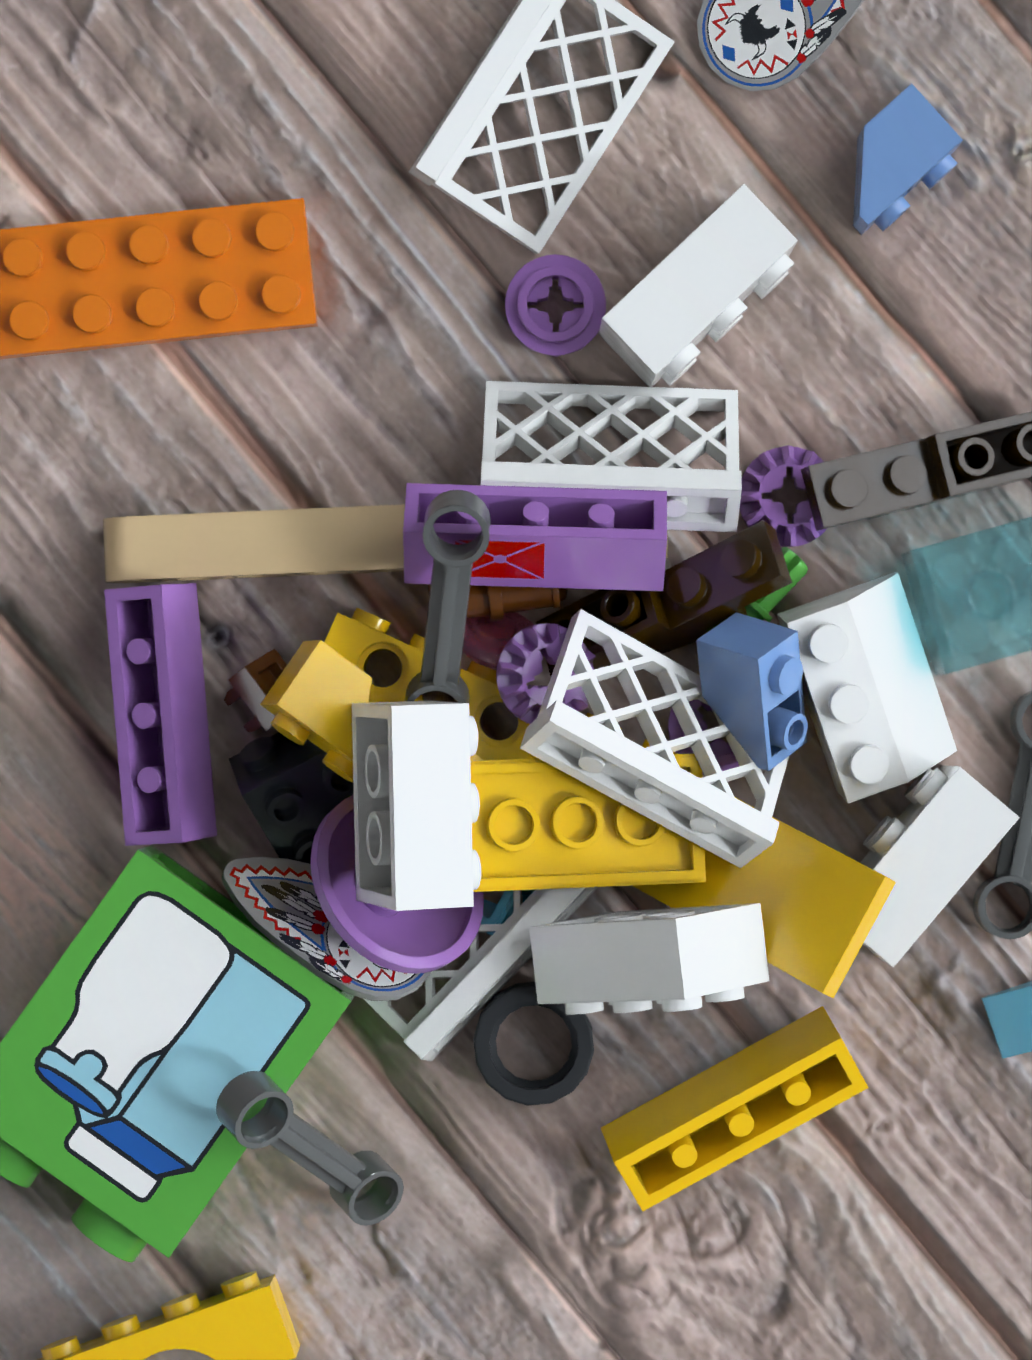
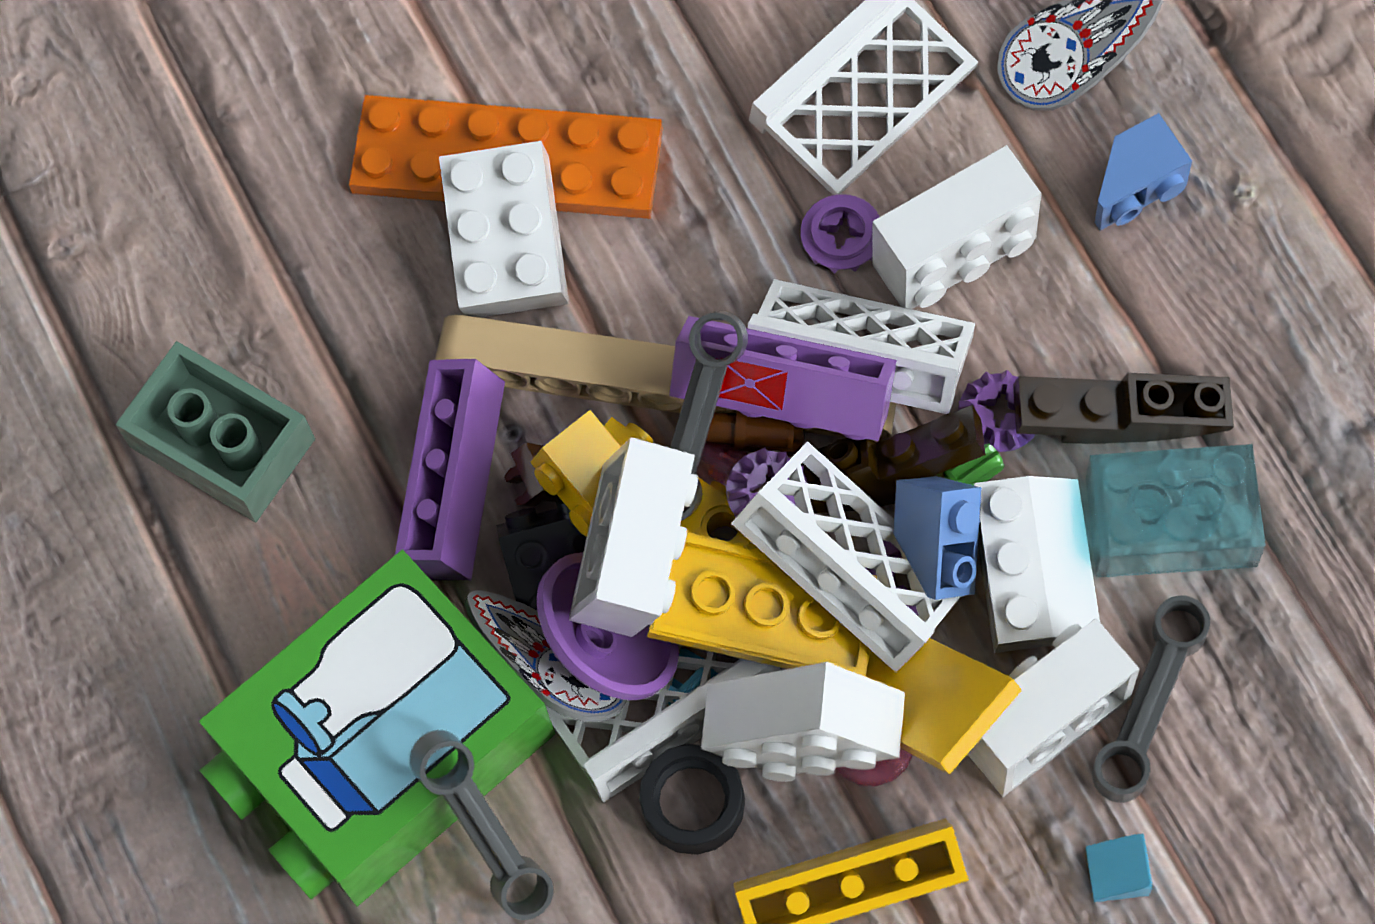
camera: 20 degrees right, 20 degrees down
(149, 397) = (503, 230): none -> white brick

